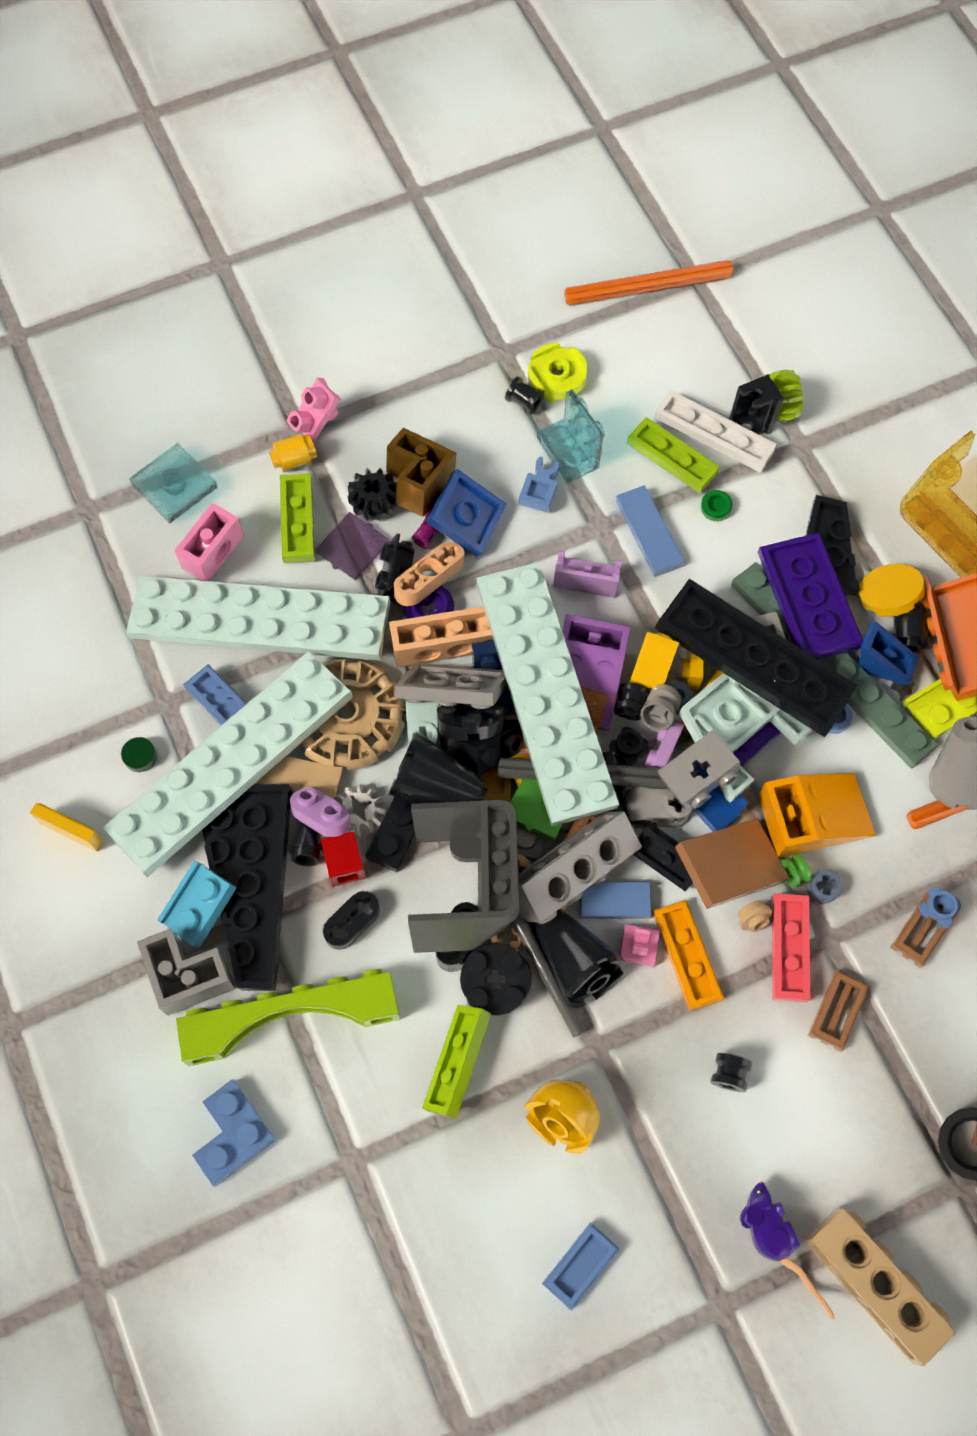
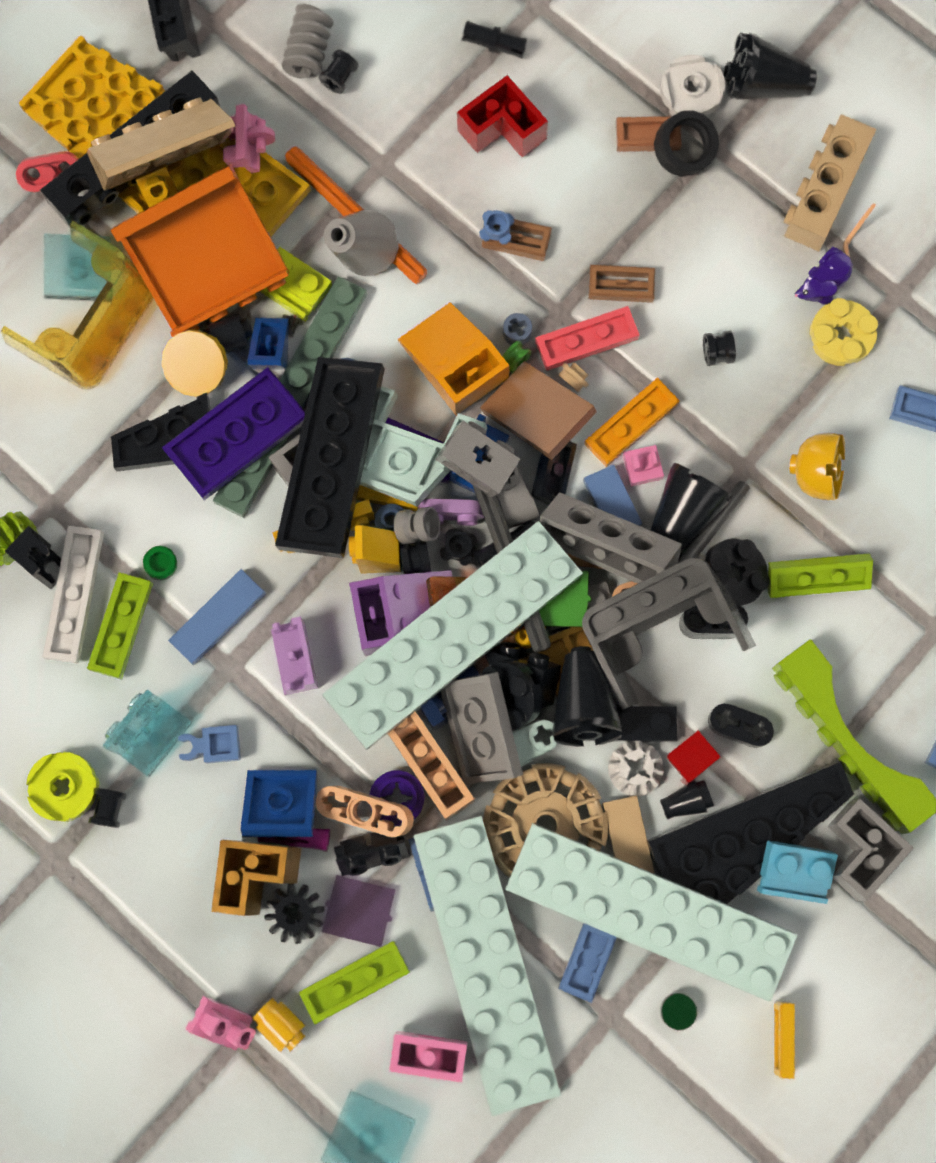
camera: 110 degrees left, 10 degrees up
(320, 812) = (660, 799): lavender plate -> none
(723, 1219) = (852, 316): none -> light yellow plate

